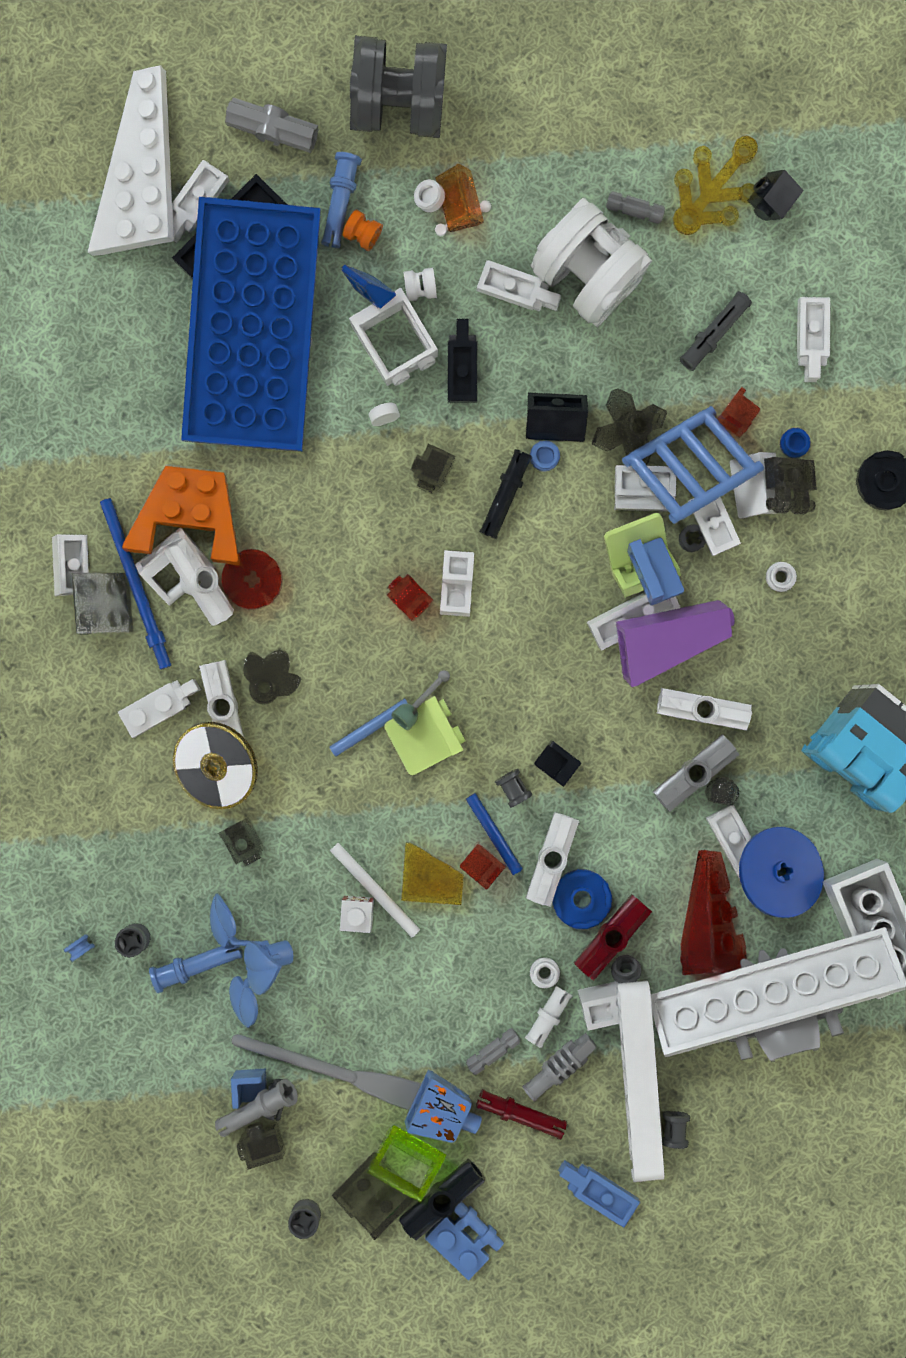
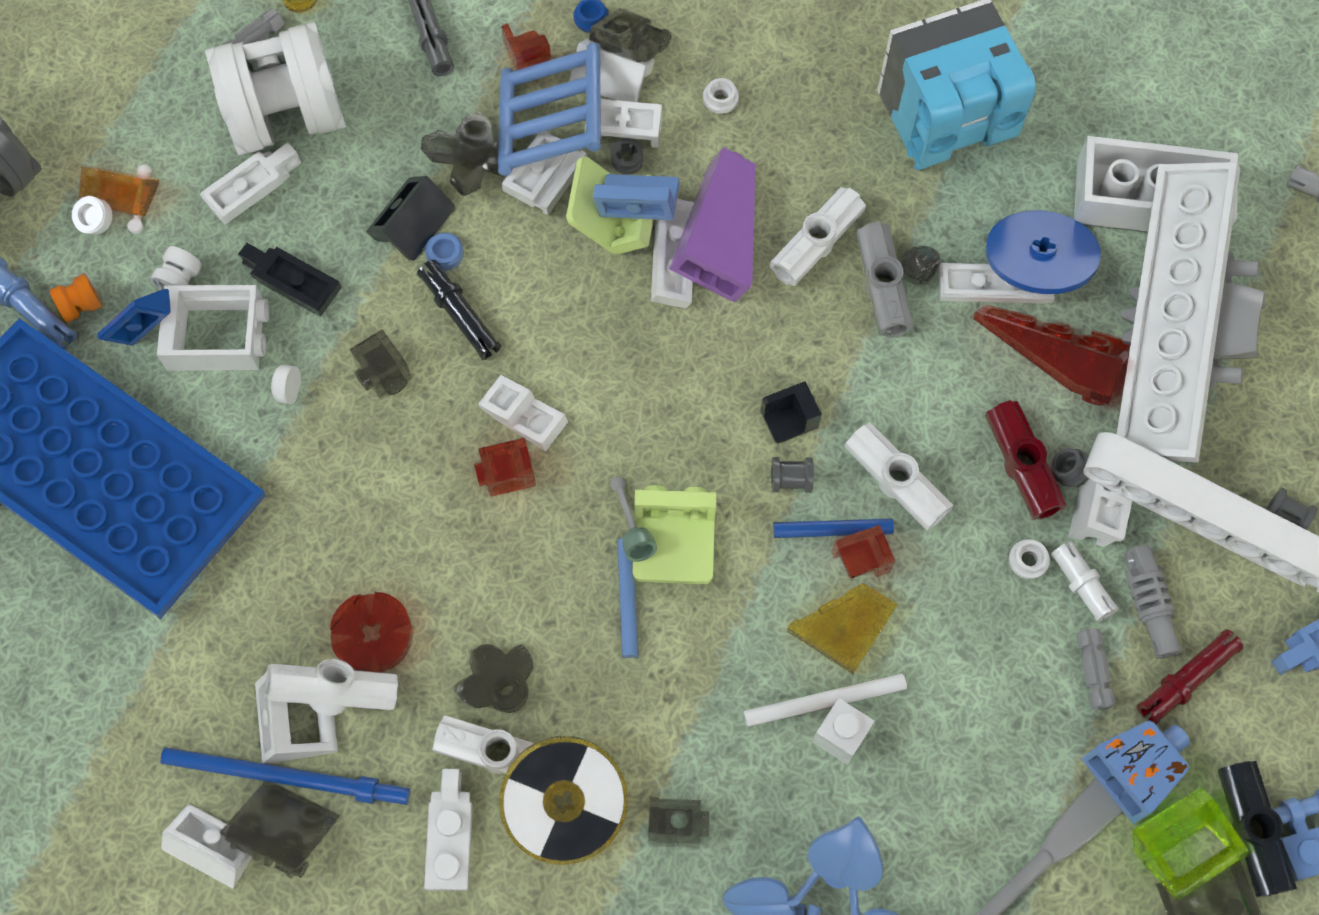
camera: 60 degrees left, 20 degrees down
(187, 501) = (232, 654): orange wing -> none
(586, 916) = (978, 457): blue tile -> none

